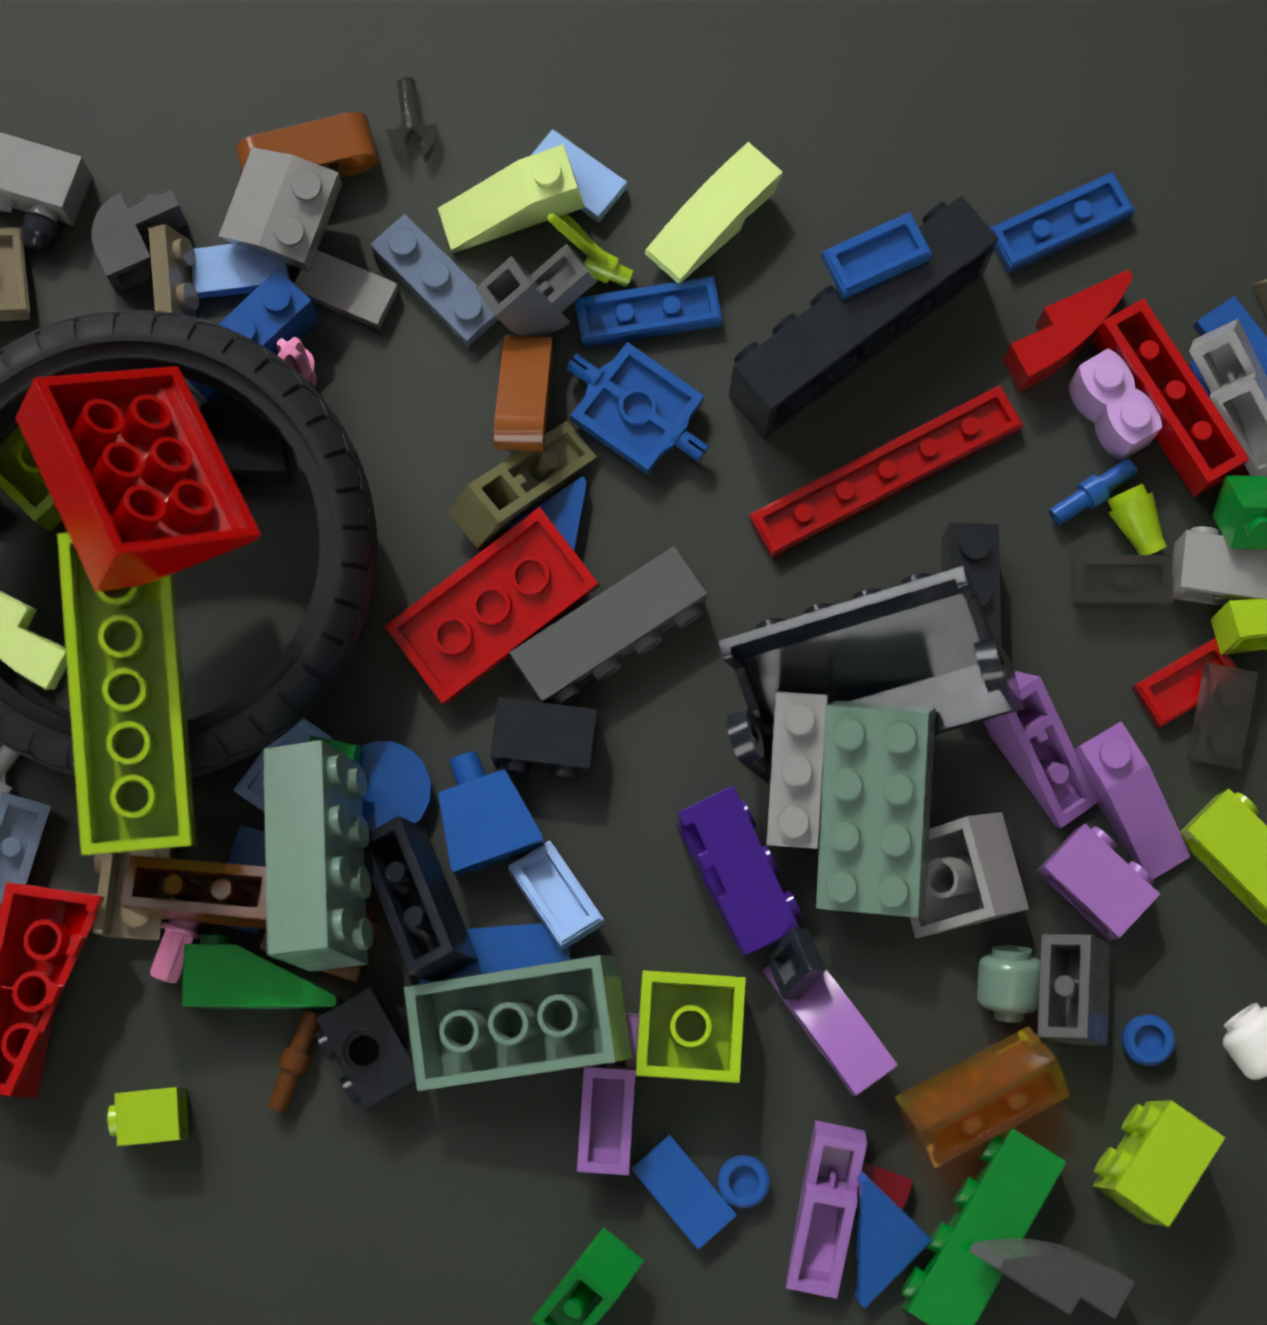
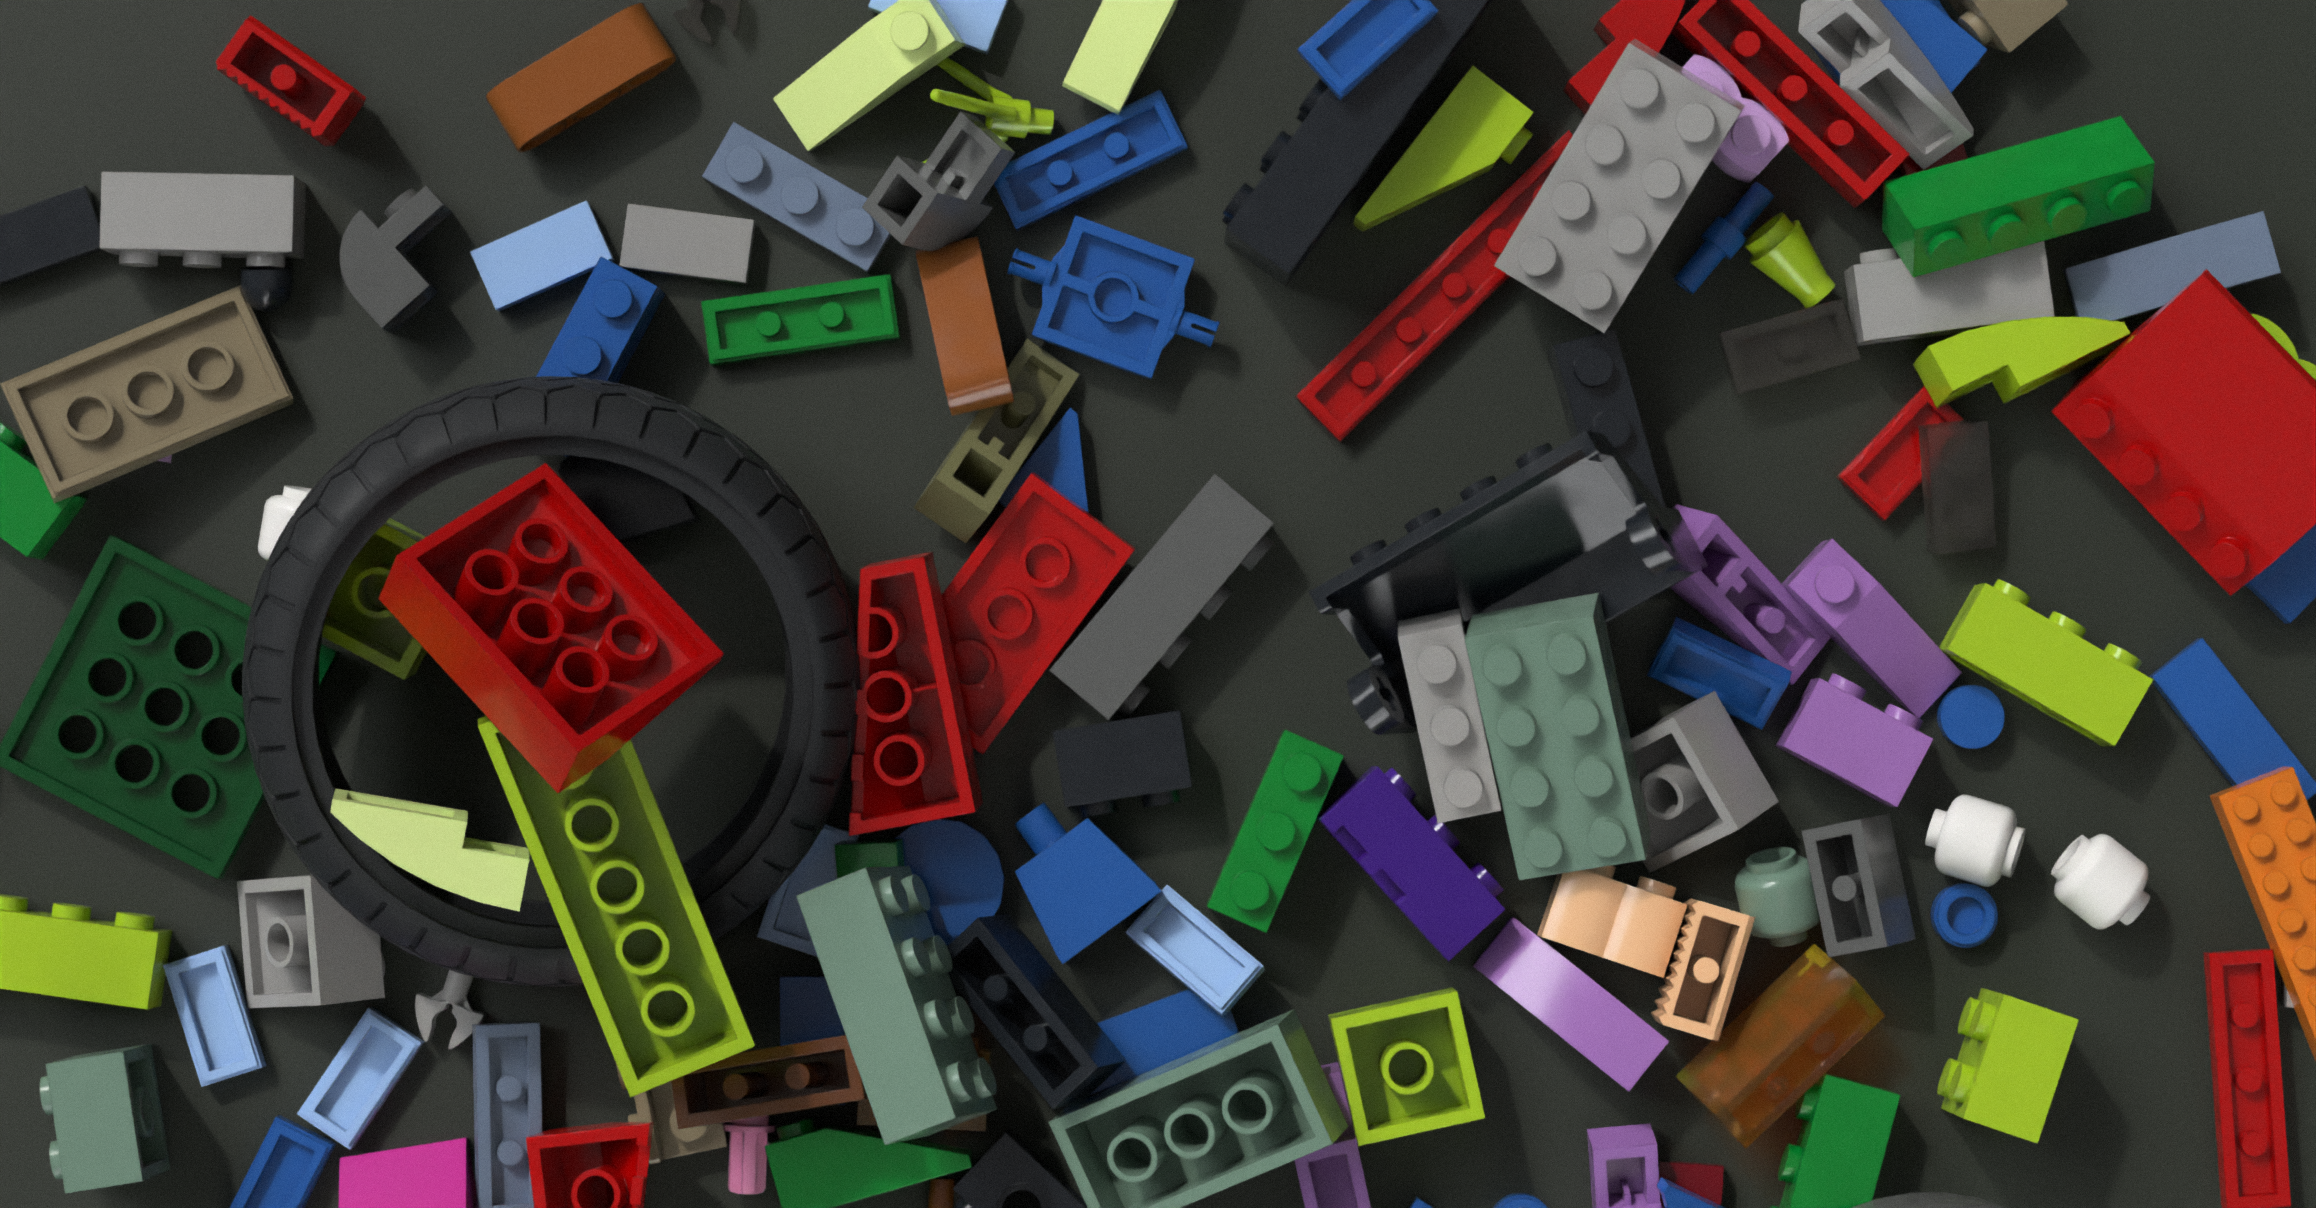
camera: 15 degrees left, 10 degrees up
(102, 96) = (290, 82): none -> red brick
(172, 271) = (464, 302): dark tan plate -> none
(281, 207) = (575, 172): light grey slope -> none
(298, 358) = (663, 374): bright pink axle -> none
(395, 657) = (912, 726): none -> red wedge
(408, 363) = (800, 320): none -> green tile
(641, 821) = (1274, 830): none -> green brick
(795, 963) = (1512, 953): black plate -> none
(879, 962) = (1614, 918): none -> light nougat brick
(913, 373) = (1456, 145): none -> lime slope
(938, 1019) = (1703, 969): none -> light nougat brick
(995, 789) = (1703, 662): none -> blue tile
(1031, 418) = (1619, 185): none -> light grey brick
(1172, 983) = (1975, 840): none -> white head
(1189, 891) = (1970, 716): none -> blue tile

